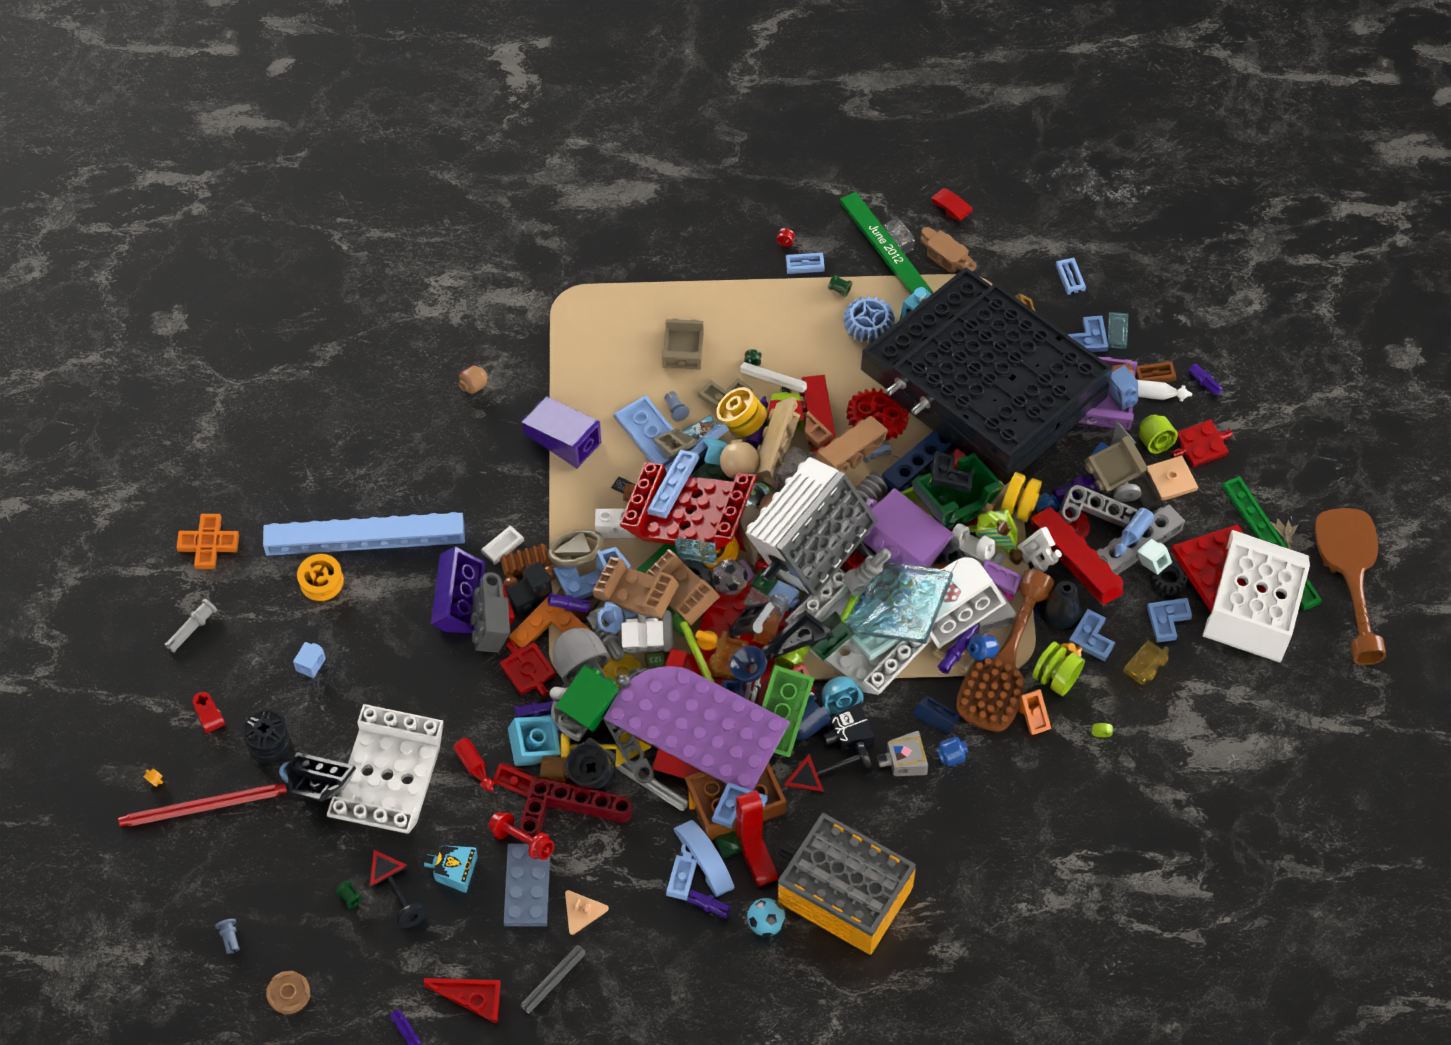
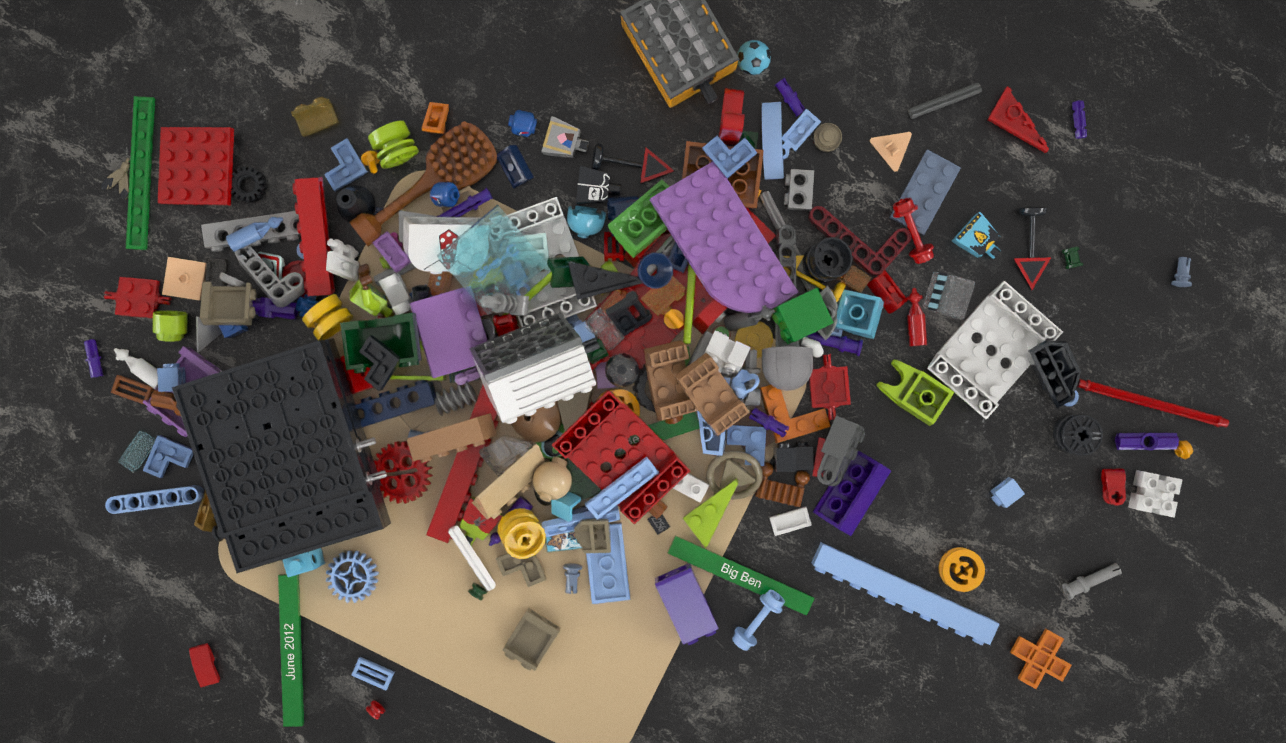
camera: 155 degrees left, 30 degrees up
(164, 724) = (1155, 493): none -> white brick
(206, 760) = (1157, 441): none -> dark purple piece
(288, 992) = (1155, 201): medium nougat tile -> none
(447, 700) = (911, 389): none -> lime brick
(455, 798) = (948, 295): none -> clear slope
(473, 379) = (735, 704): medium nougat head -> none
(485, 464) = (743, 637): none -> light blue piece
(524, 479) = (738, 574): none -> green tile
(582, 508) = (706, 517): none -> lime wing
(648, 824) = (804, 190): none -> light grey brick
(651, 884) = (827, 137): none -> dark tan plate
(695, 550) = (638, 408): clear light blue tile -> none
(816, 431) = (467, 479): nougat tile -> none
(840, 285) = (357, 627): dark green bush -> none
(867, 616) = (529, 264): clear light blue tile -> none
(900, 235) = (271, 656): clear leg -> none
(946, 251) = (239, 614): medium nougat hinge -> none
(1074, 287) = (154, 517): light blue tile -> none
(1079, 298) = (146, 499): none -> light blue beam
(1100, 525) = (274, 262): none -> light aqua piece
(1102, 730) = (389, 76): lime tile -> none
(1154, 556) = (248, 202): light aqua brick -> none
(1164, 615) = (273, 153): medium blue plate -> none
(1251, 618) = (206, 106): white slope -> none
(1350, 546) = (79, 126): dark orange piece -> none

